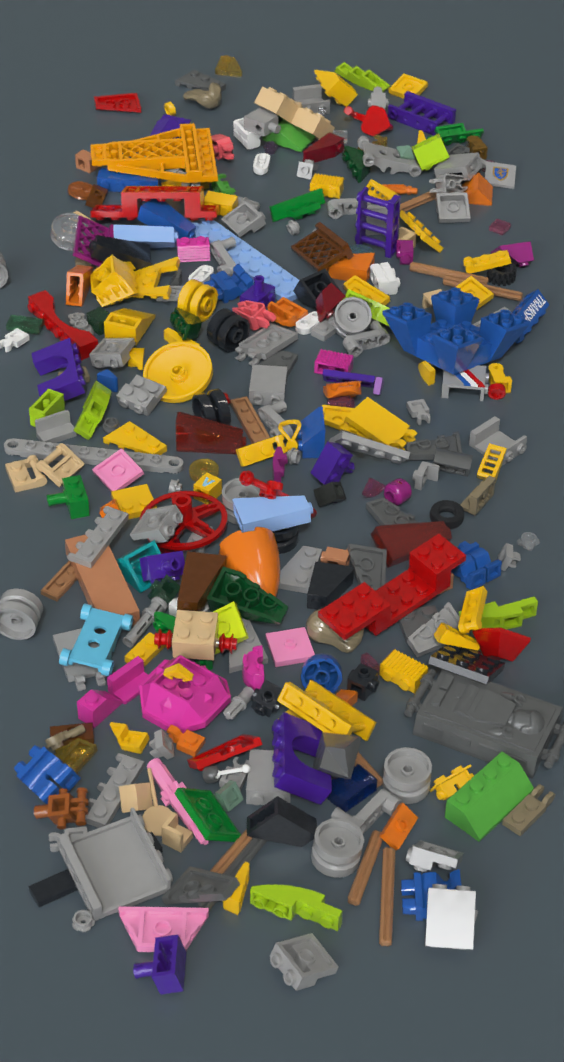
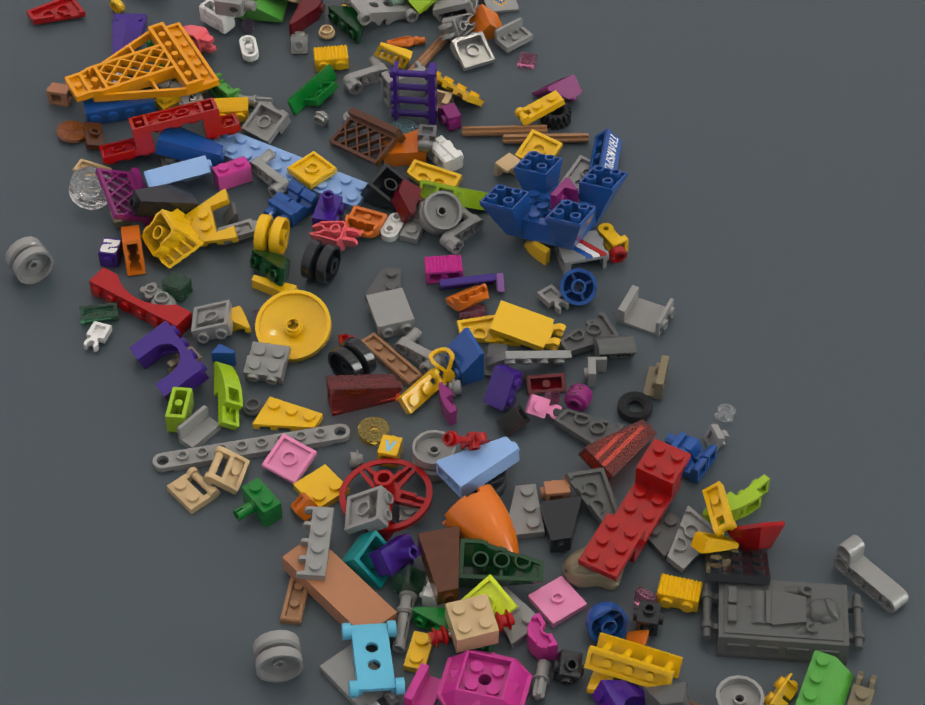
camera: 20 degrees left, 5 degrees up
(57, 282) = (110, 252): none -> dark purple brick
(127, 324) = (209, 283): yellow slope -> none
(179, 672) = (476, 670): yellow tile -> none
(202, 273) = (255, 203): white plate -> none
(261, 262) = (312, 170): none -> yellow tile
(265, 343) = (362, 264): light grey tile -> none
(334, 166) = (326, 32): none -> tan plate
(357, 489) = (540, 407): none -> bright pink plate
(371, 258) = (426, 137): none -> flat silver plate
(381, 474) = (545, 382): none -> dark red slope
(444, 404) = (578, 286): none -> blue cylinder
(467, 321) = (565, 190): none -> magenta slope
(483, 475) = (653, 353): yellow slope -> none
(495, 203) = (512, 35): none -> light grey bracket

